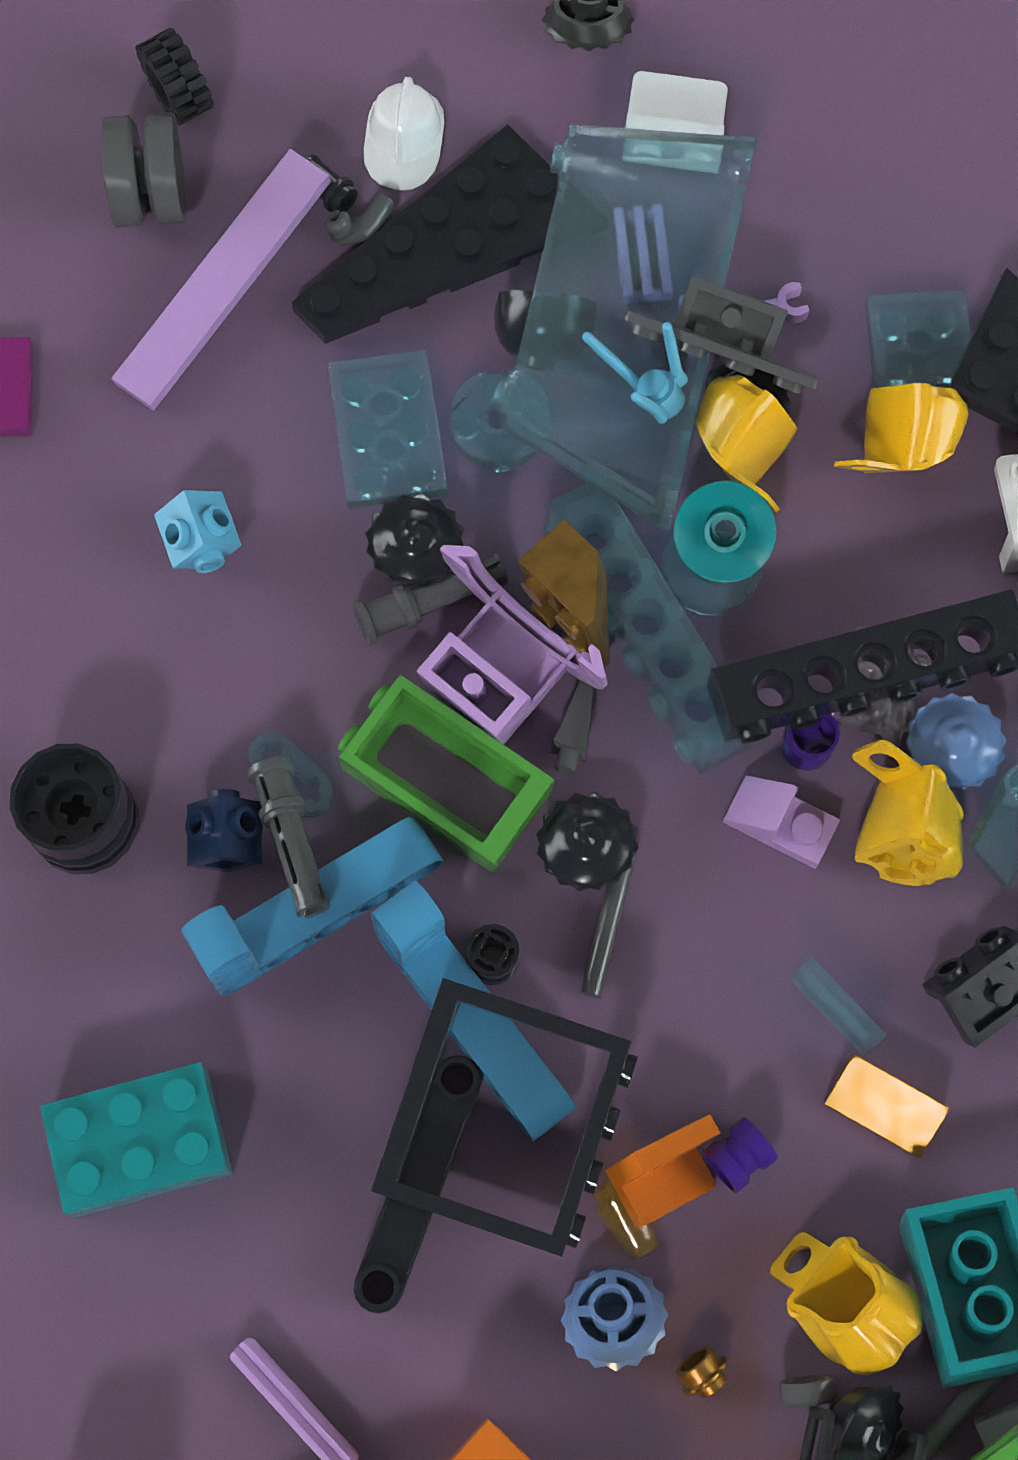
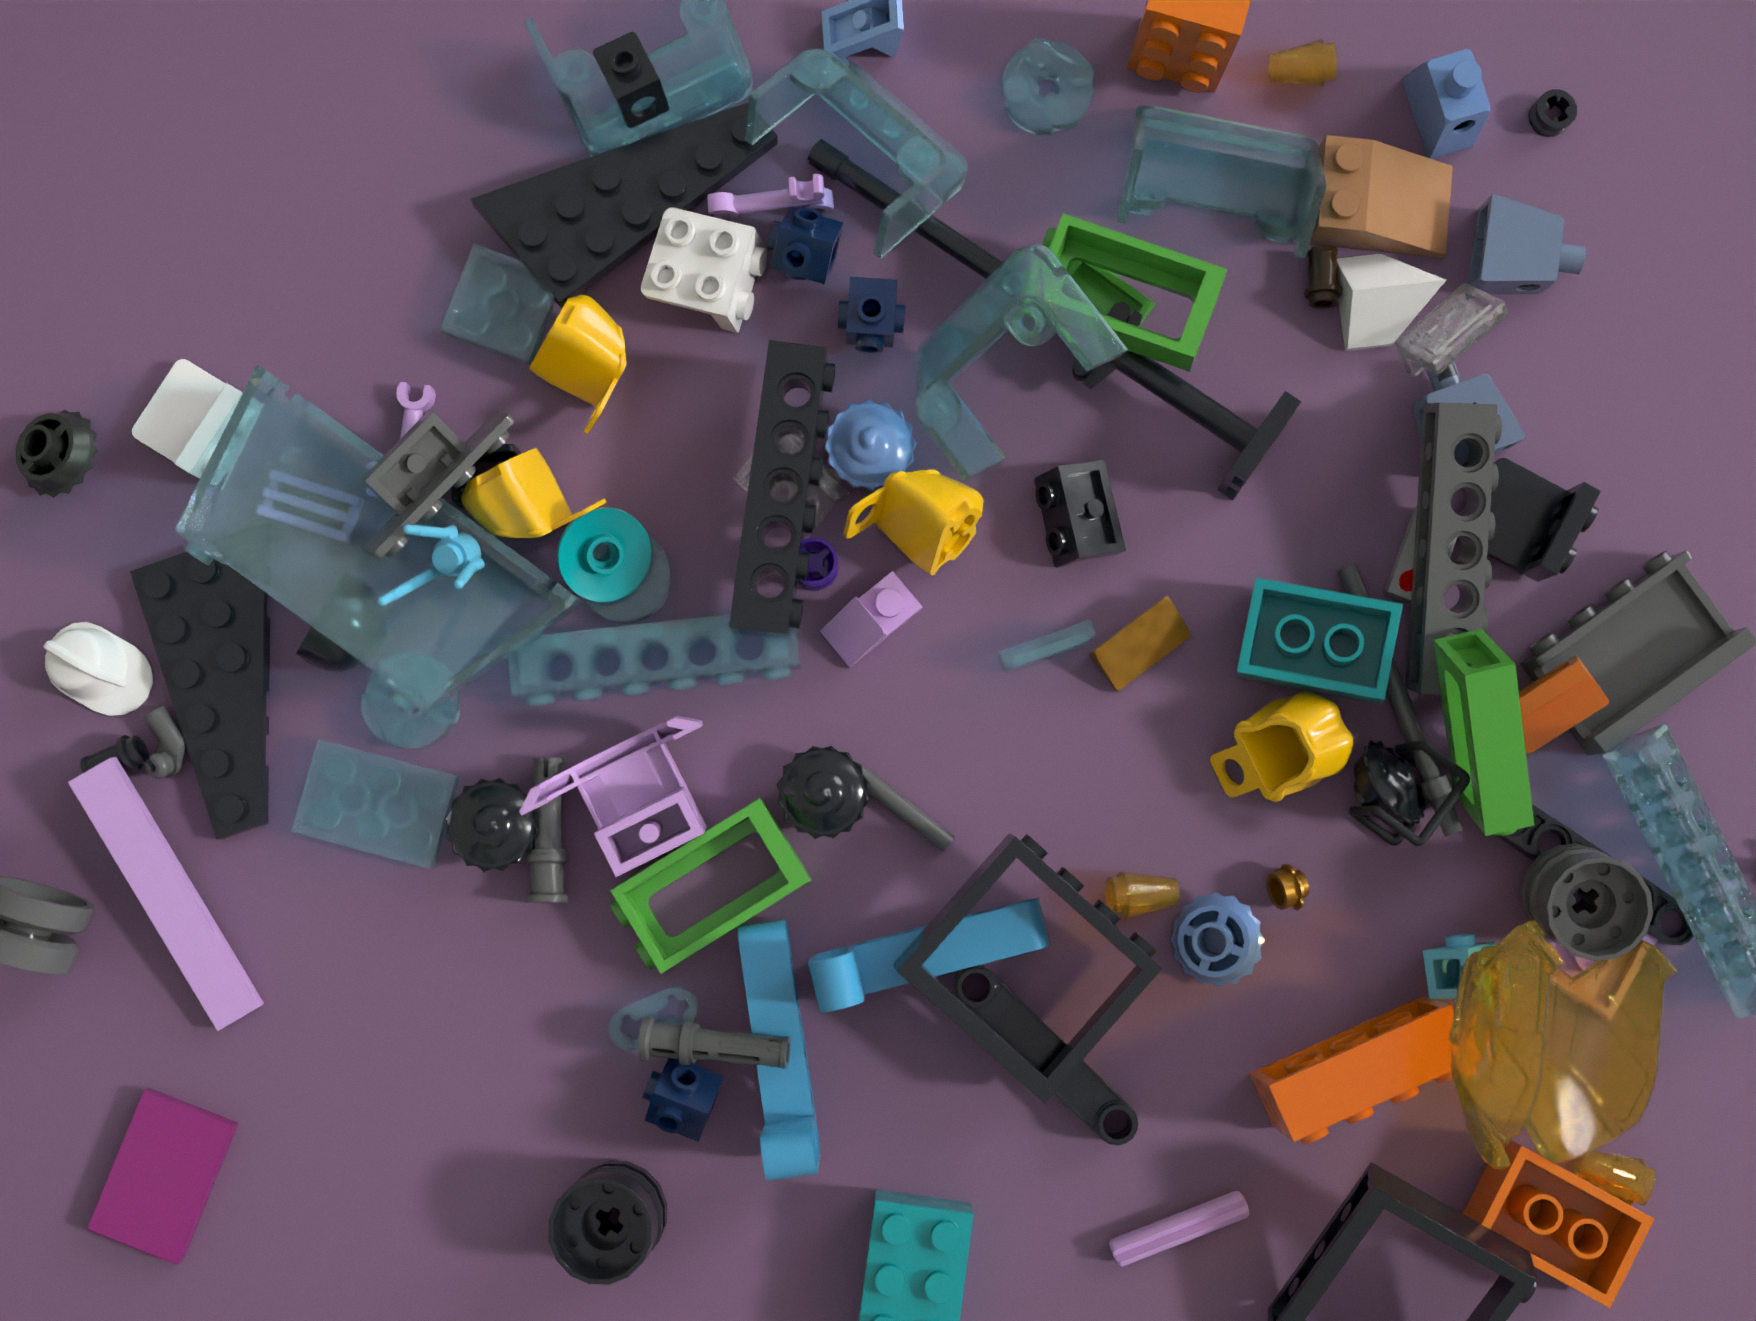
camera: 65 degrees left, 10 degrees up
(197, 530) = (399, 1012): medium azure brick -> none
(494, 964) = (883, 905): black wheel -> none
(569, 588) = (599, 709): pearl gold slope -> none
(573, 733) = (720, 759): dark grey piece -> none
(664, 1173) = (1123, 850): orange panel -> none
(740, 1155) = (1133, 780): dark purple wheel -> none
(808, 1390) = (1336, 810): dark grey tile -> none

